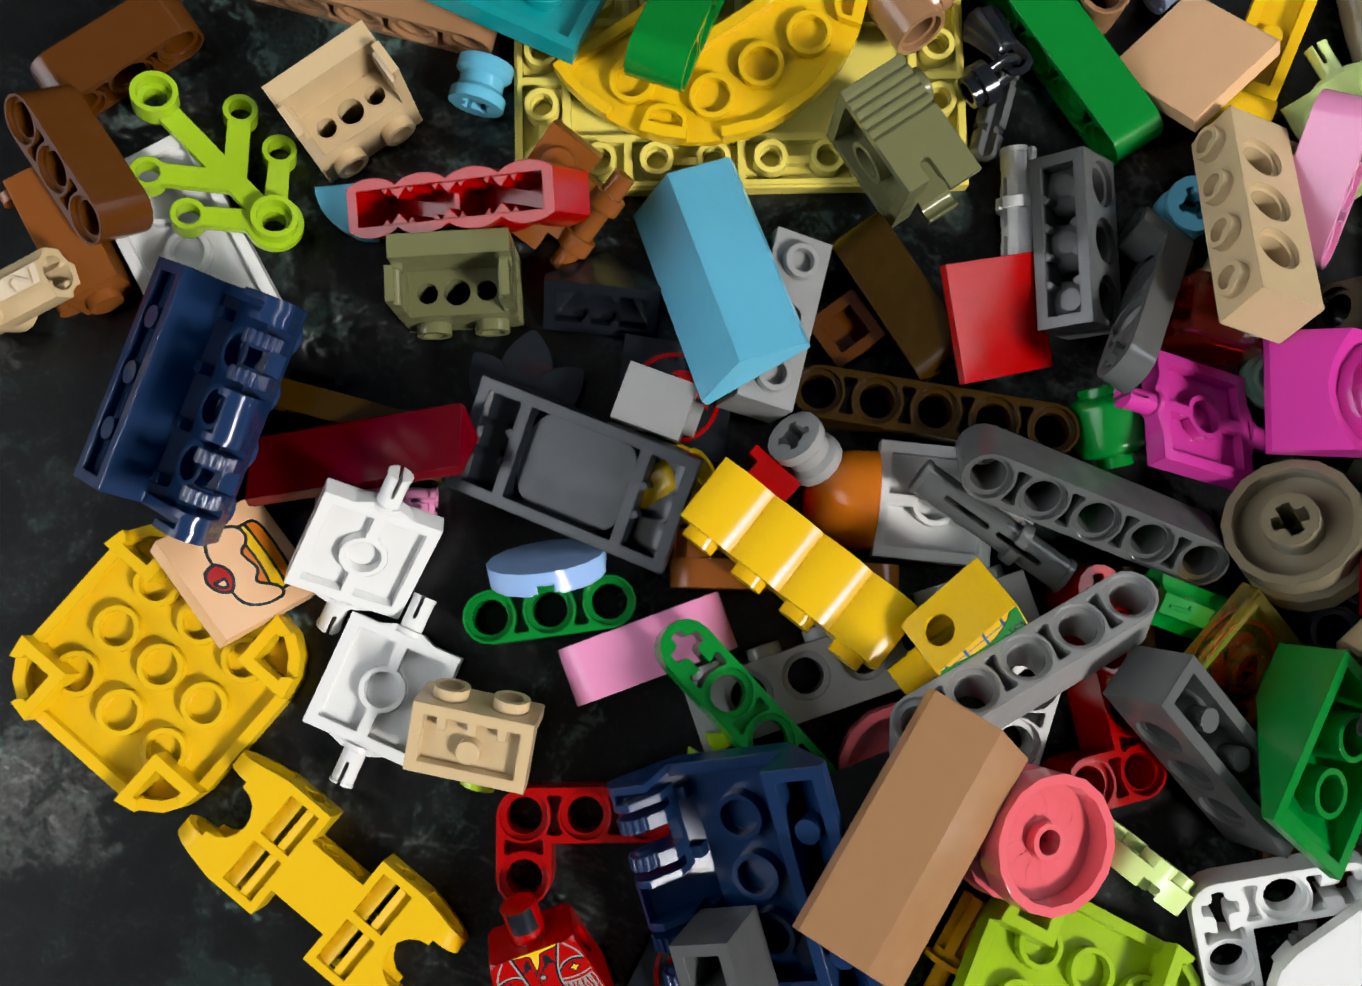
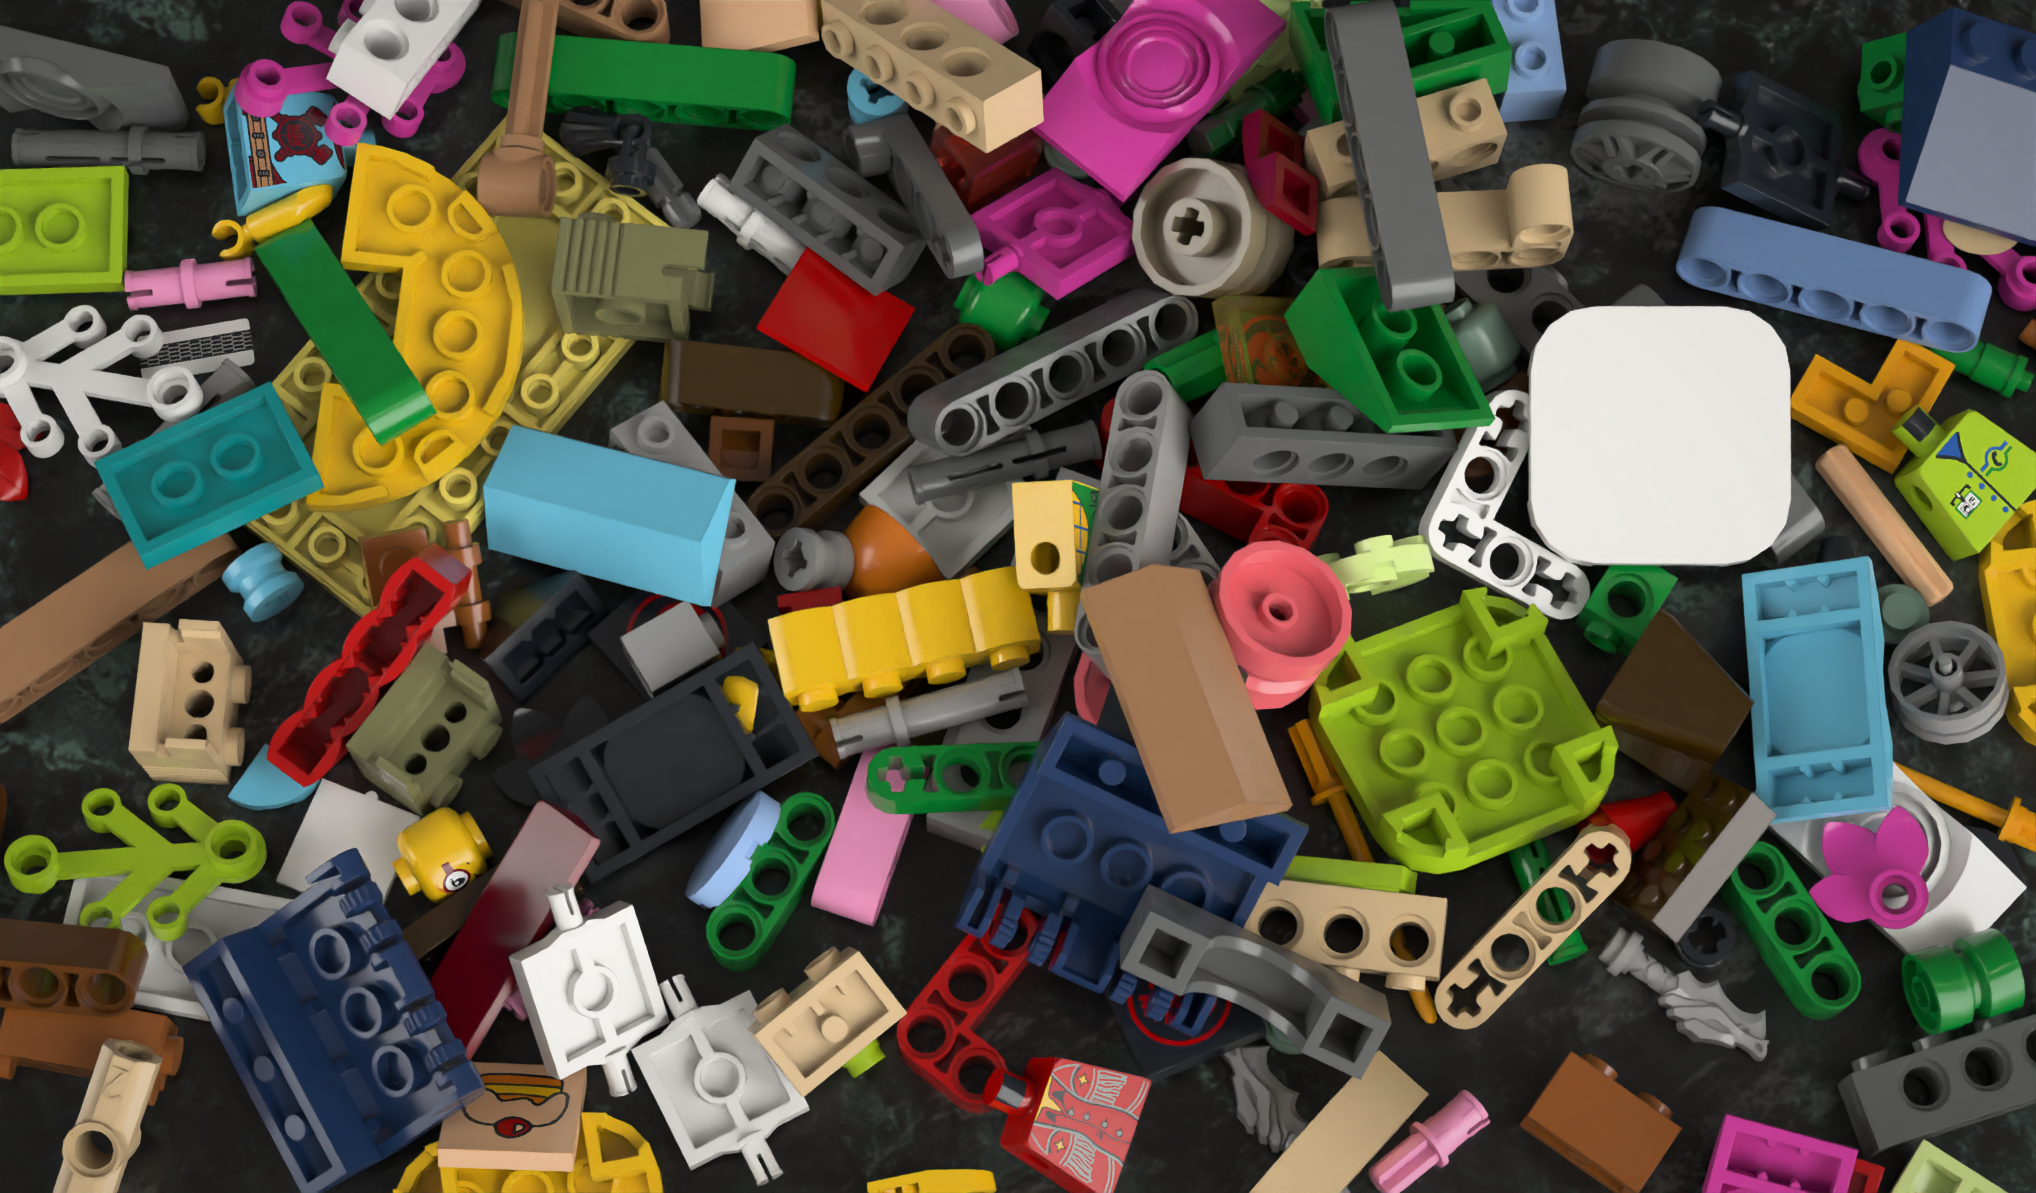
camera: 50 degrees left, 10 degrees down
(344, 299) = (343, 821): none -> white piece
(385, 365) = (441, 854): none -> yellow head
(759, 628) = (928, 713): none -> light grey pin

